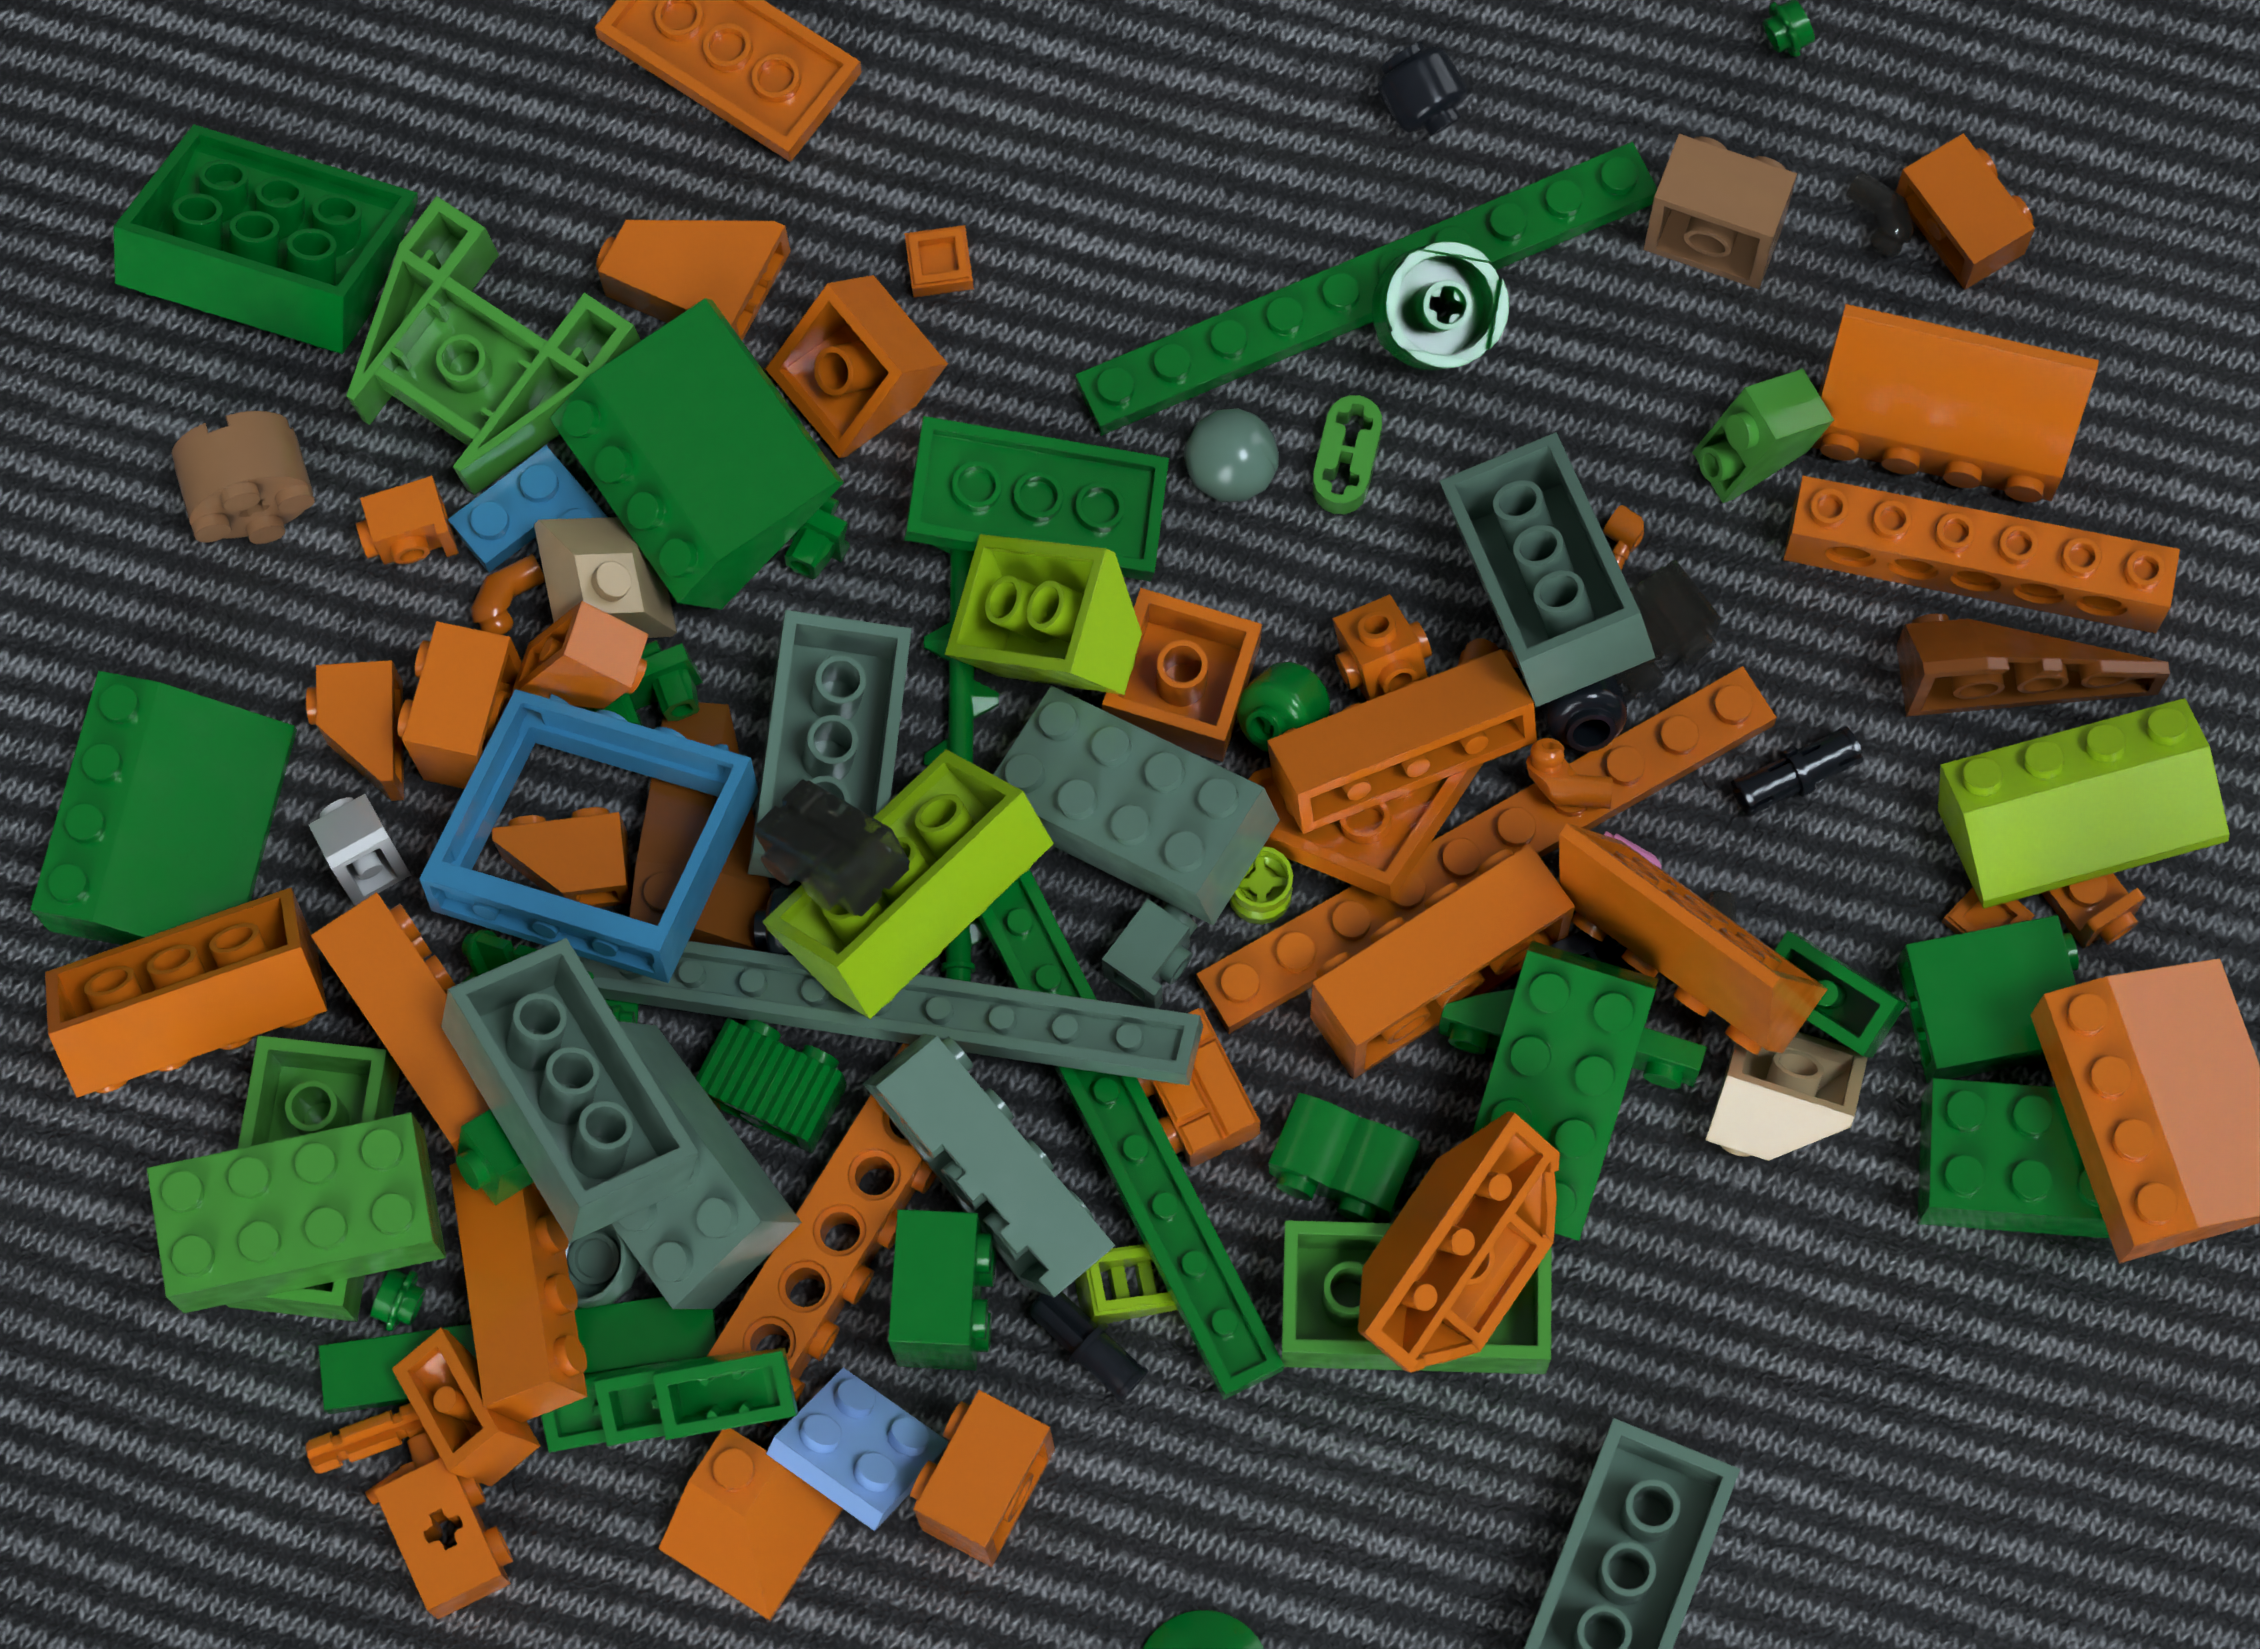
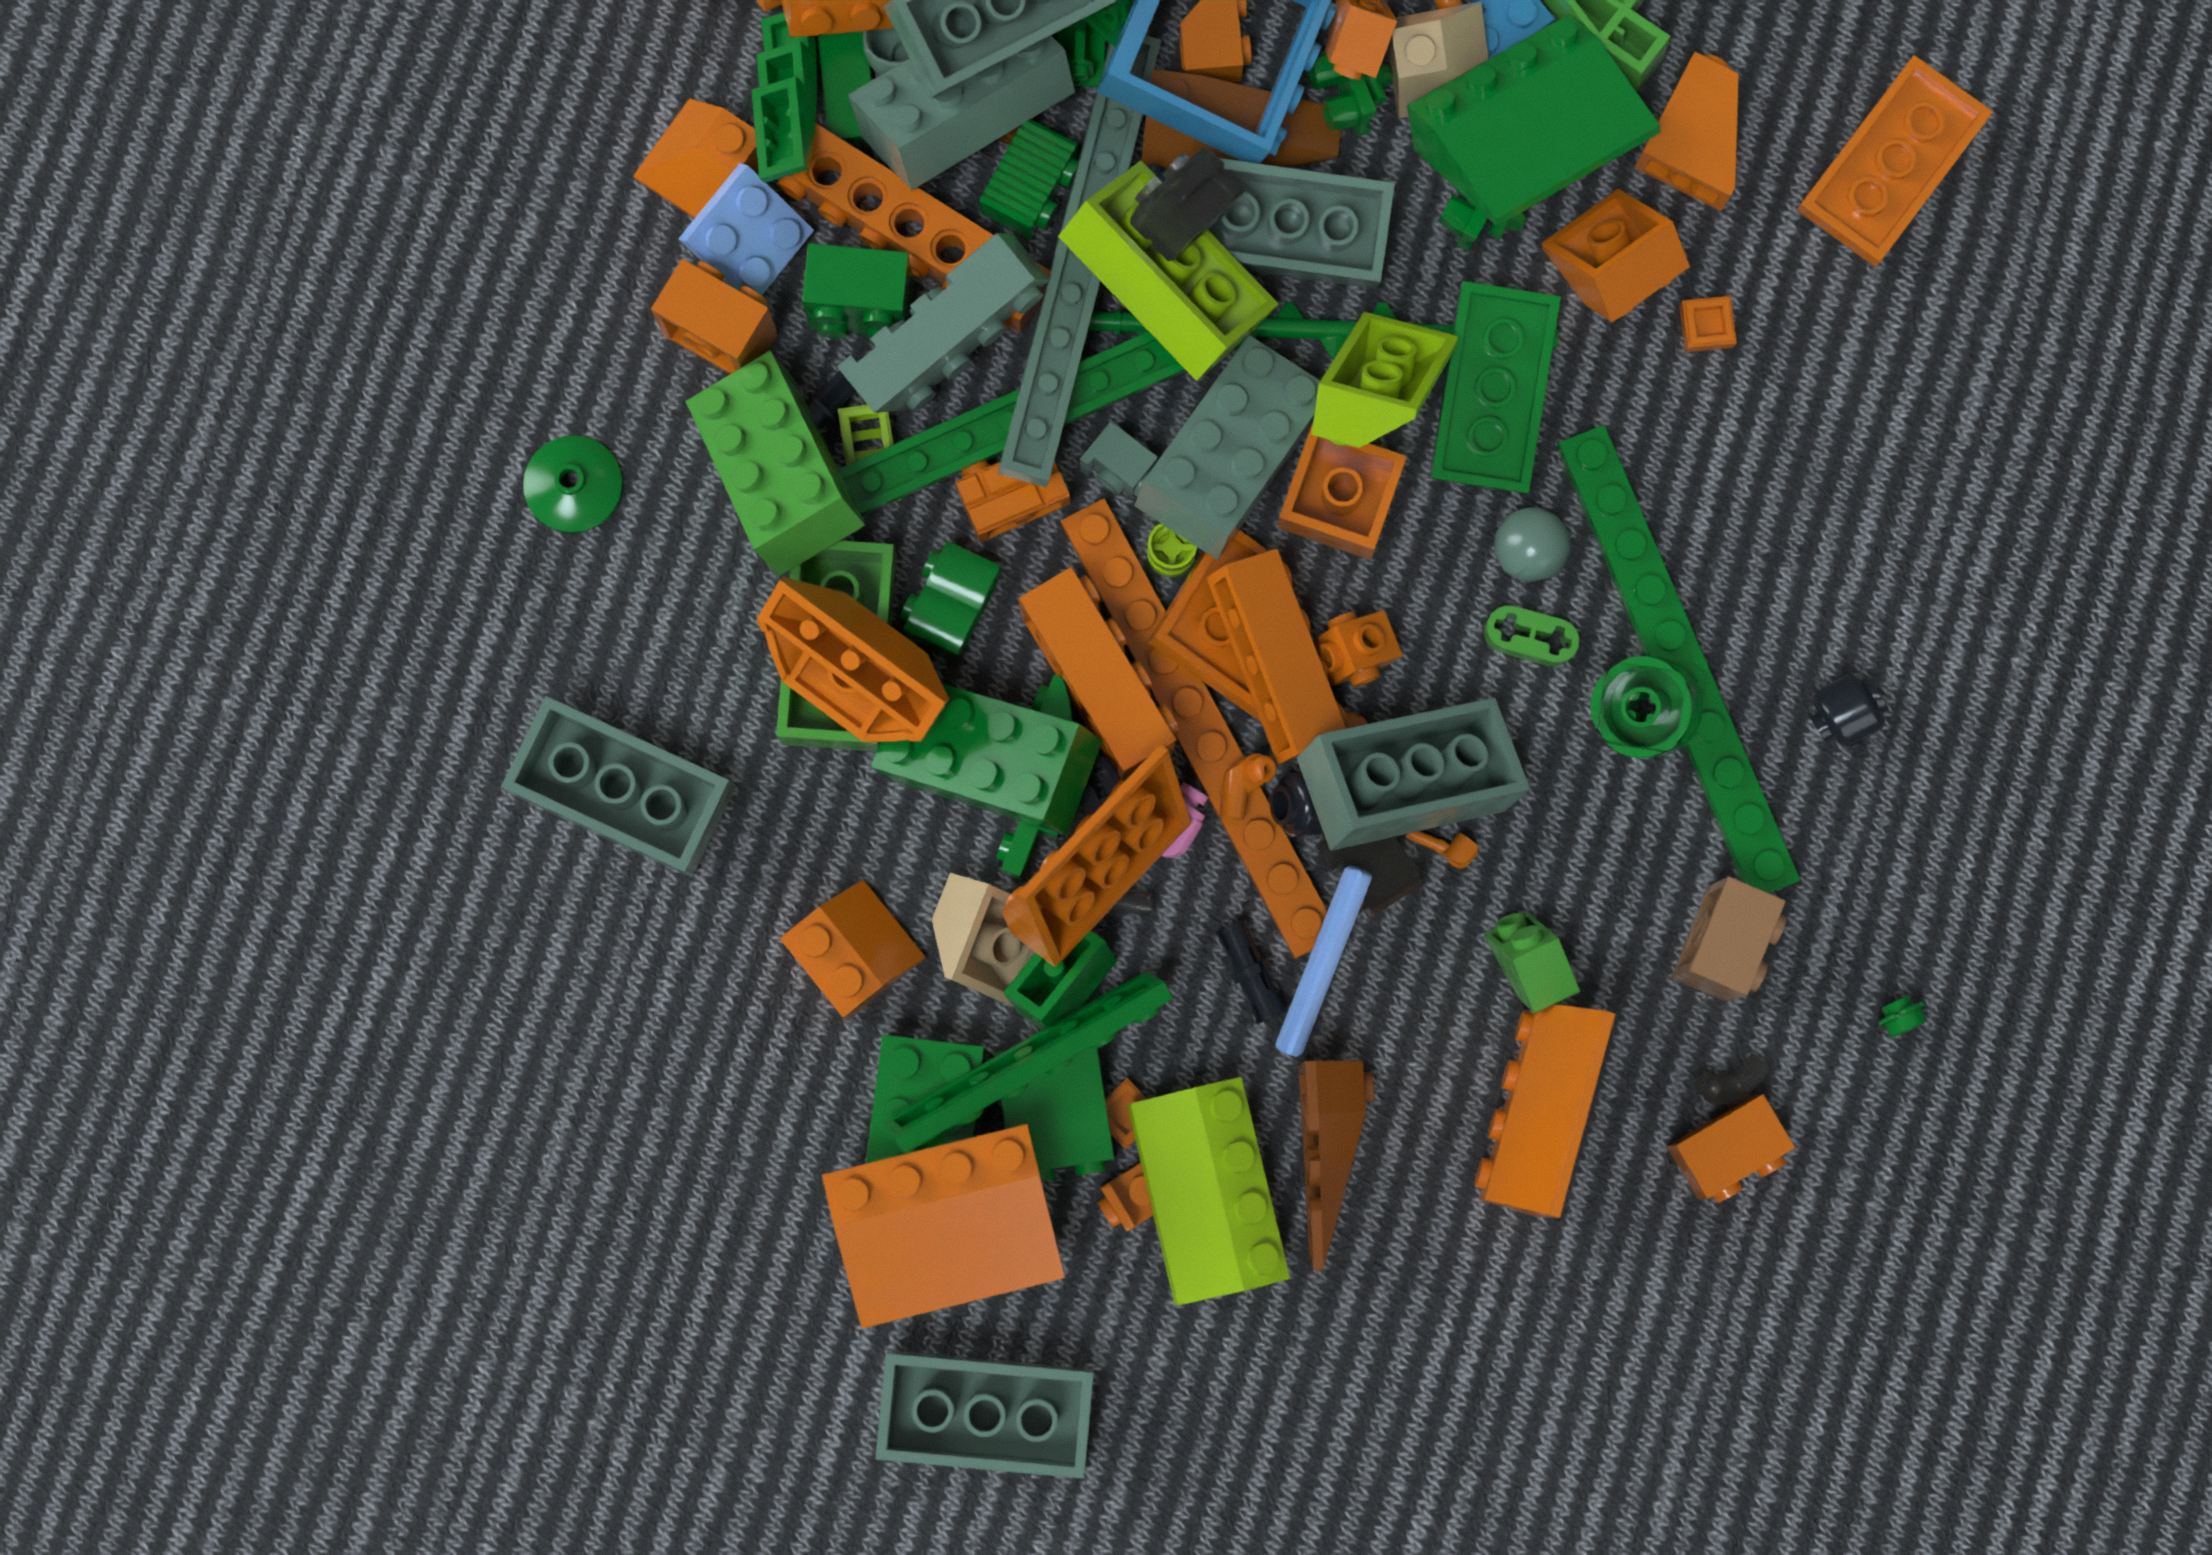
camera: 85 degrees right, 10 degrees up
(1183, 1379) = (774, 463): none -> bright green brick
(1279, 700) = (1316, 570): green head -> none
(1782, 677) = (1323, 960): none -> light blue axle
(1813, 1263) = (852, 949): none -> orange slope
(1954, 1016) = (1039, 1054): none -> green plate
(1981, 554) = (1426, 1130): orange brick -> none

